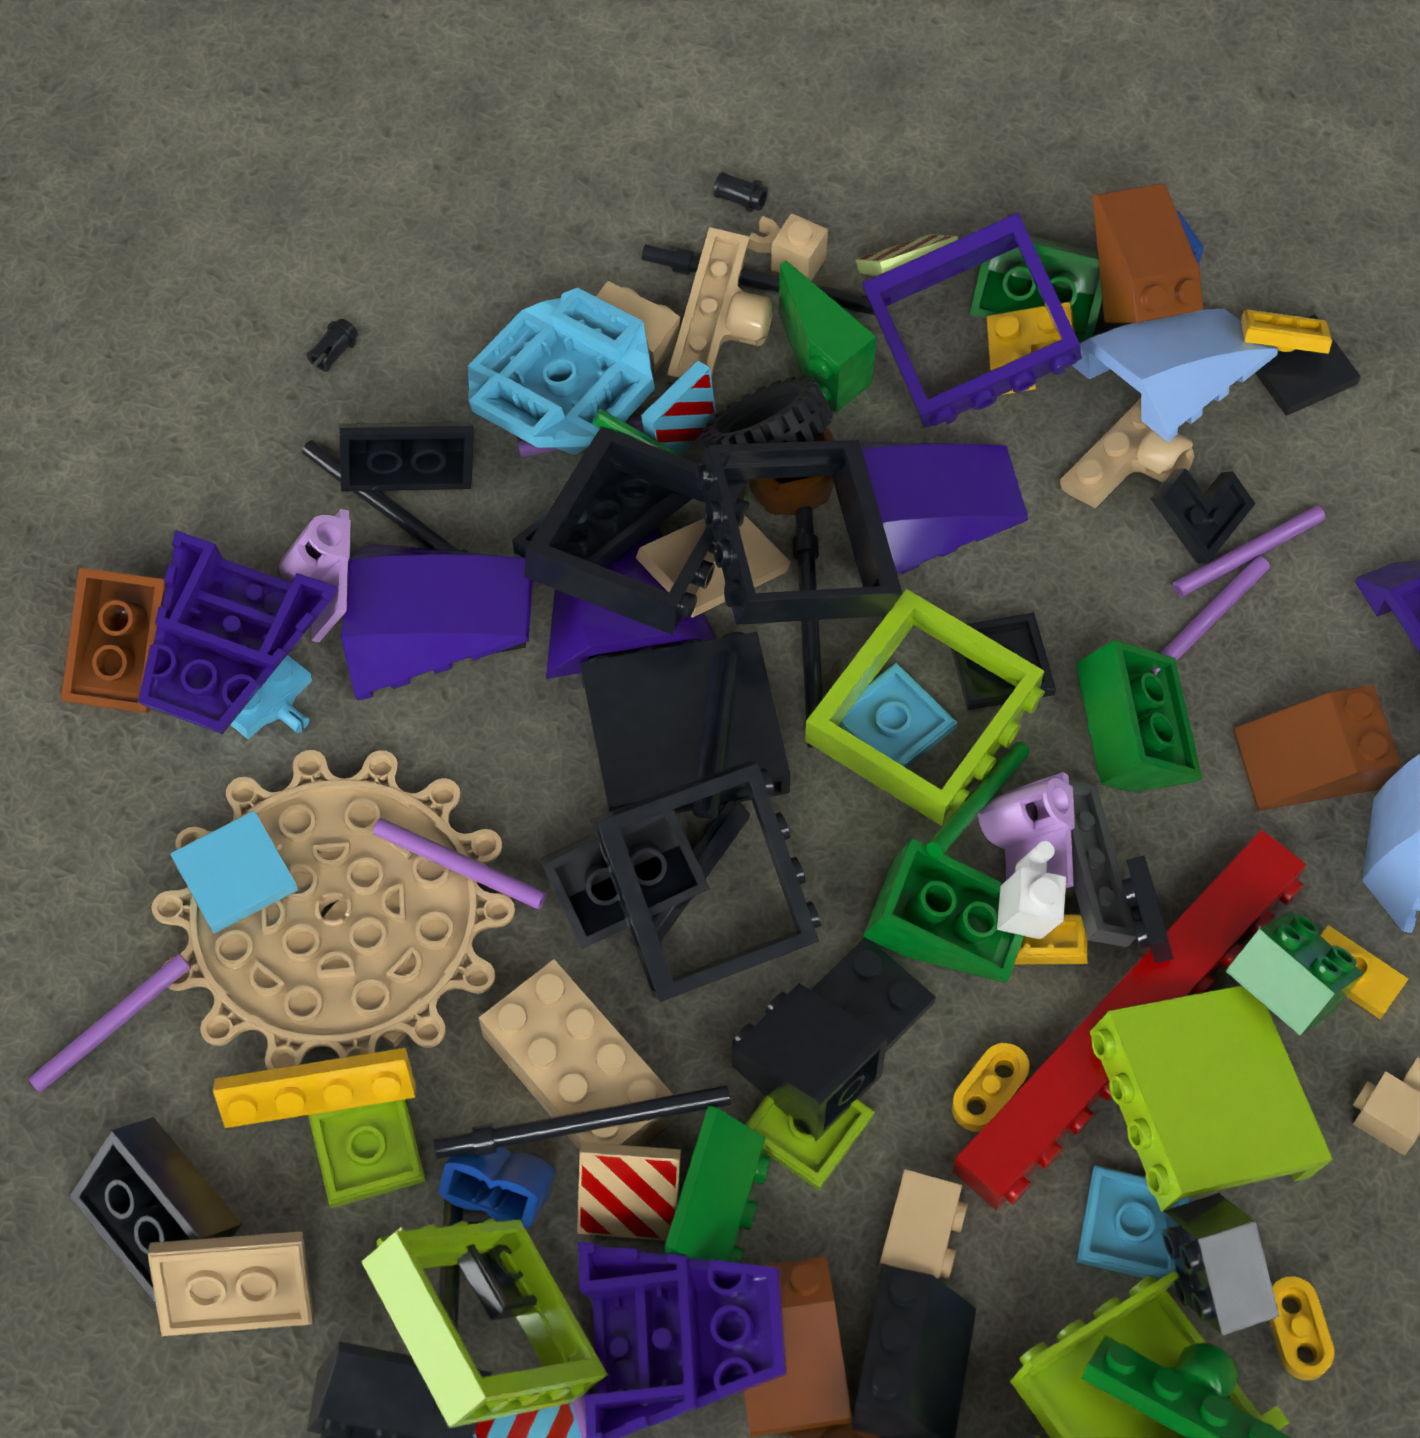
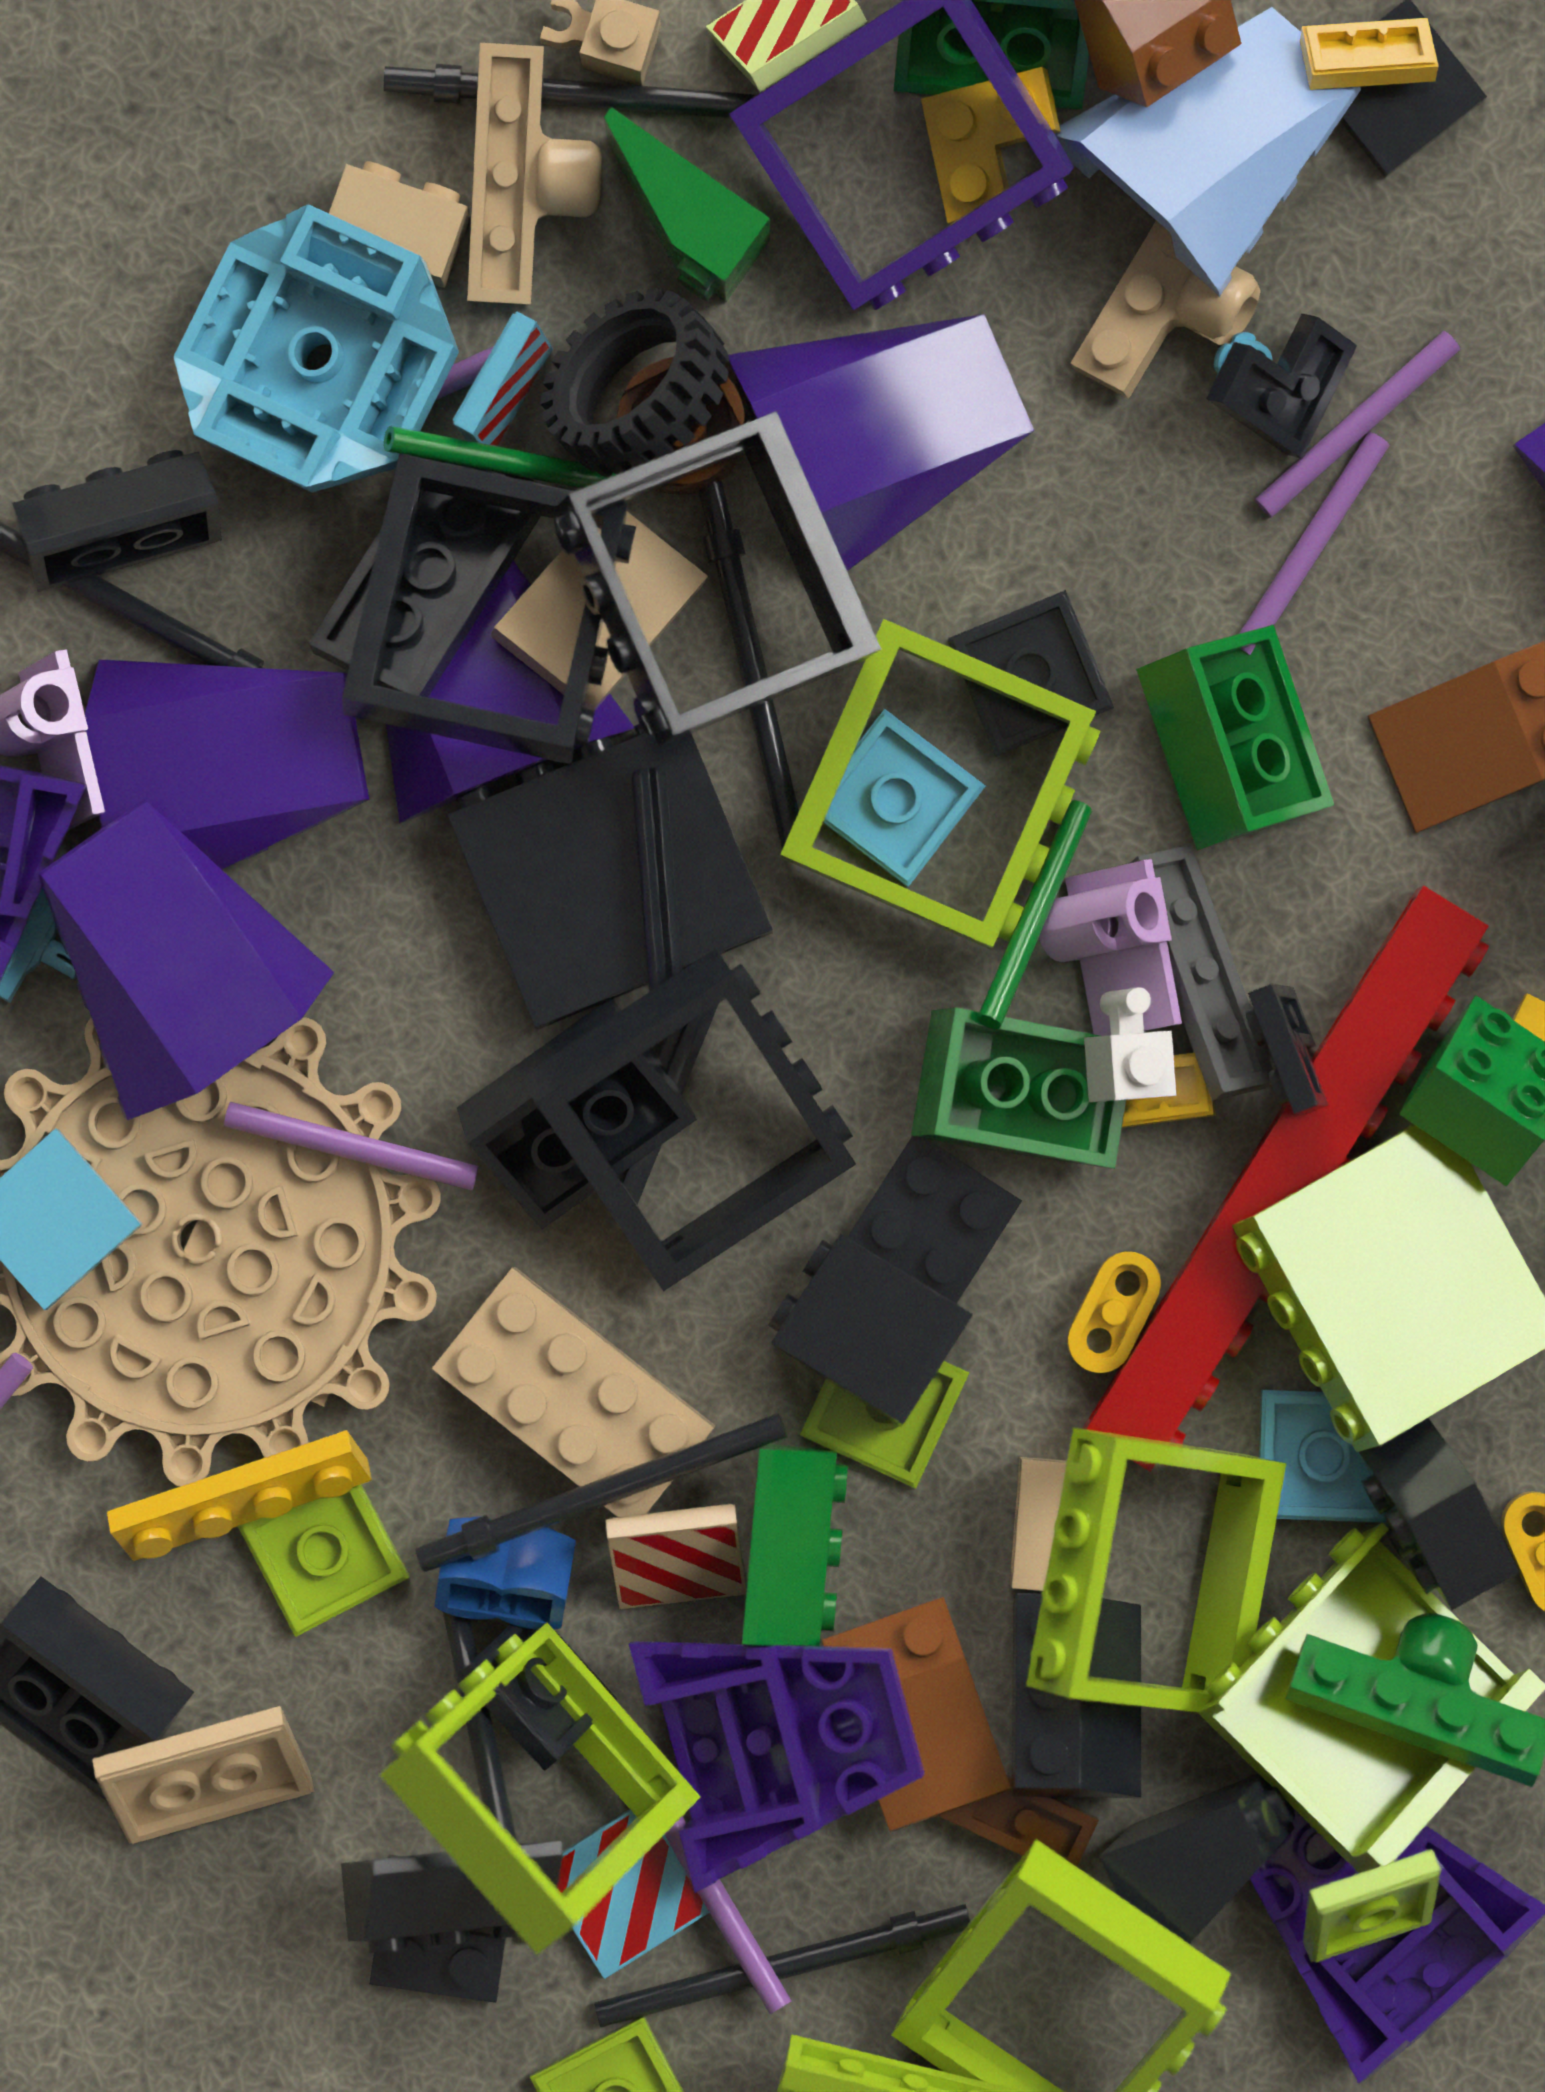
camera: 10 degrees left, 25 degrees up
(365, 711) = (173, 959): none -> dark purple wedge
(932, 1237) = (1081, 1551): none -> lime window

